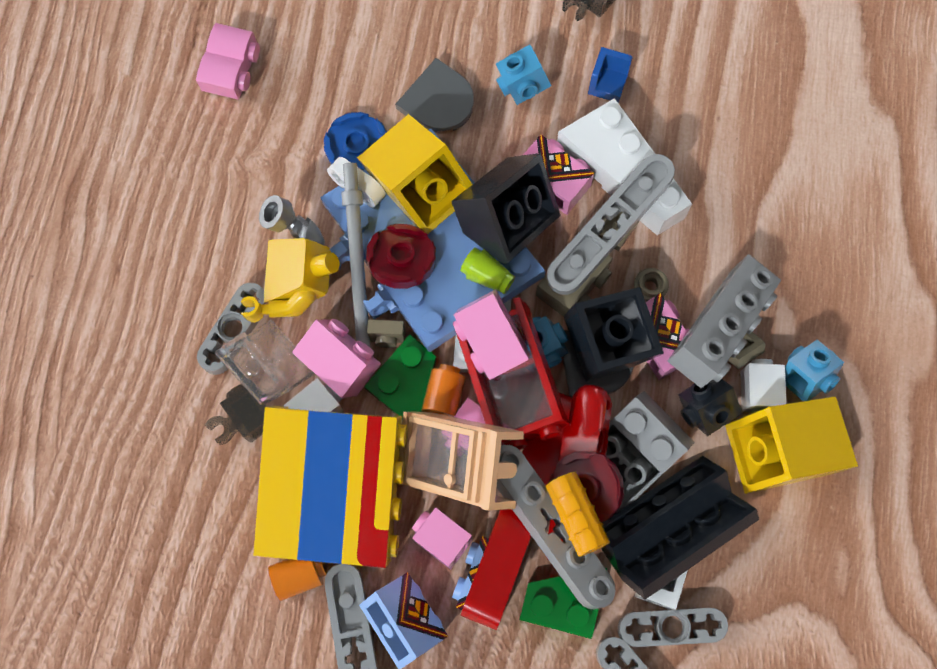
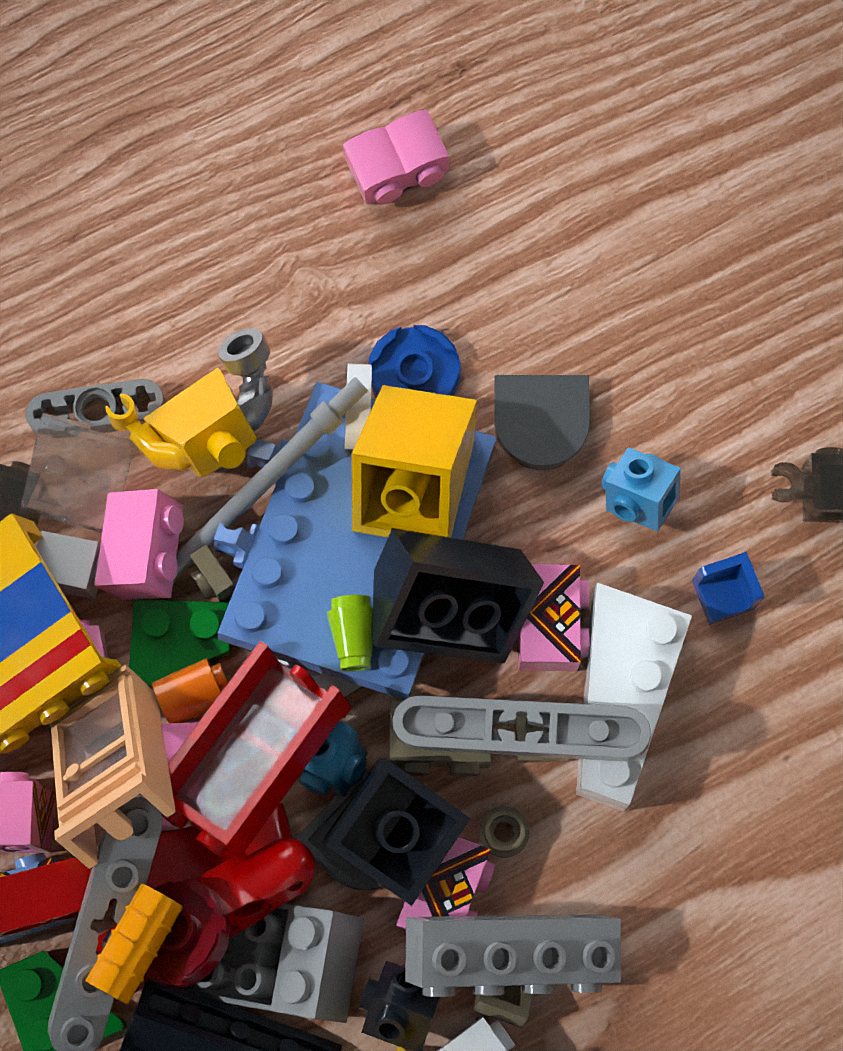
camera: 50 degrees right, 0 degrees up
(401, 256) = (303, 523): dark red tile -> none
(491, 335) = (271, 692): bright pink brick -> none

